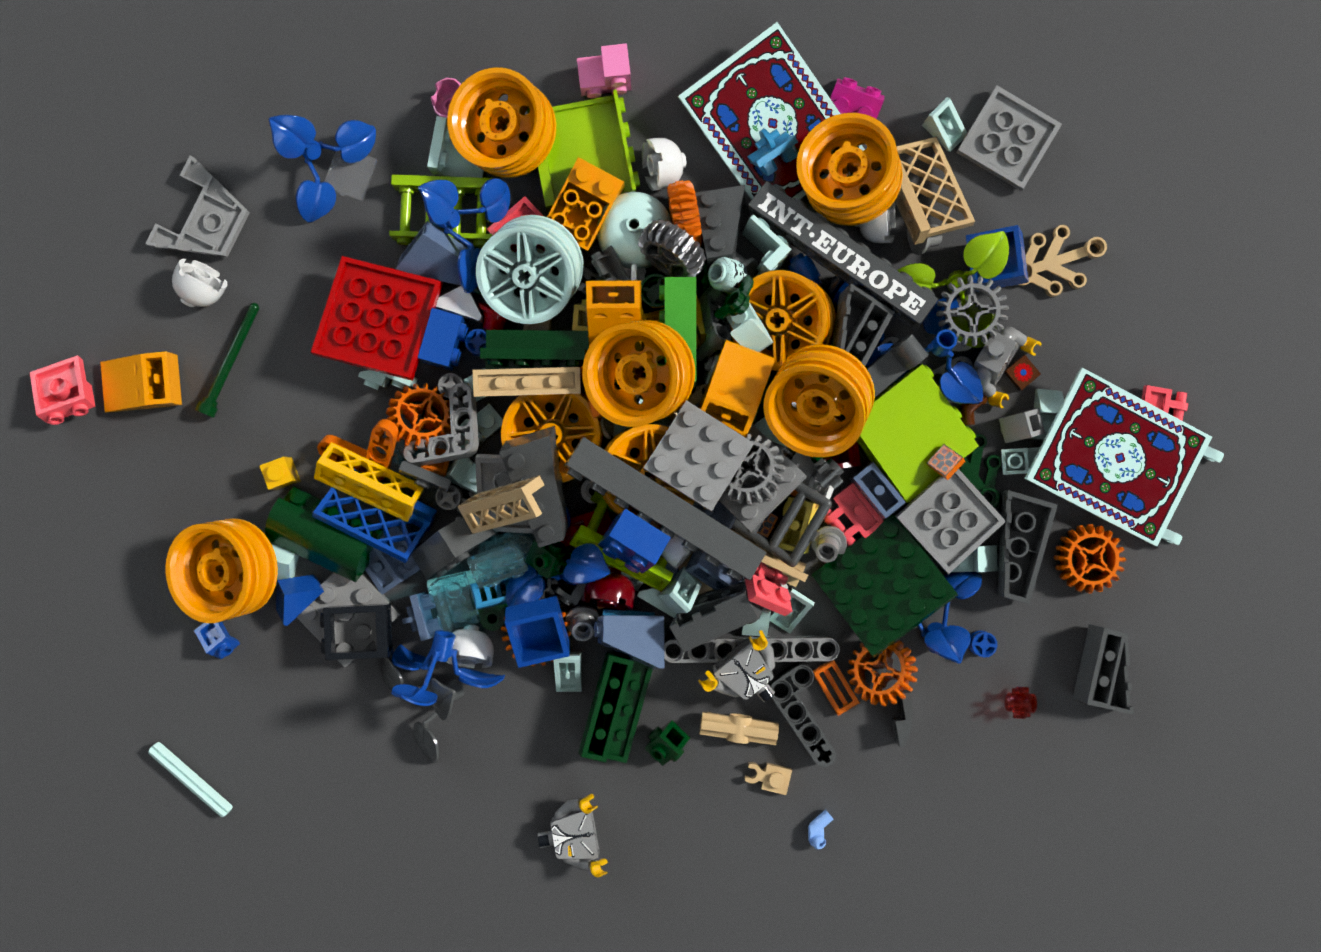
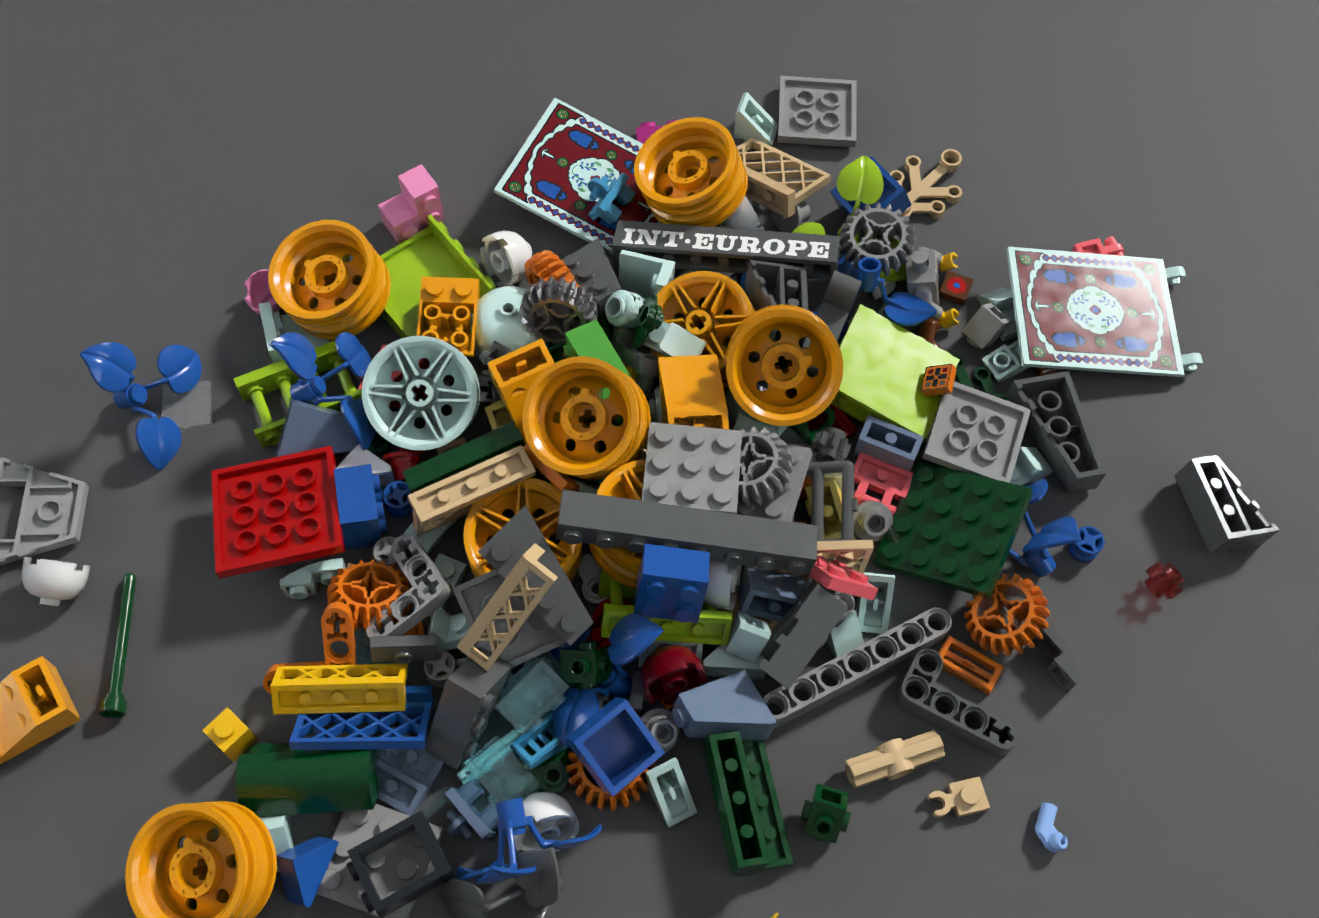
camera: 30 degrees left, 25 degrees down
(744, 670) = (865, 677): light grey torso -> none
(1103, 543) = (1121, 419): orange gear -> none

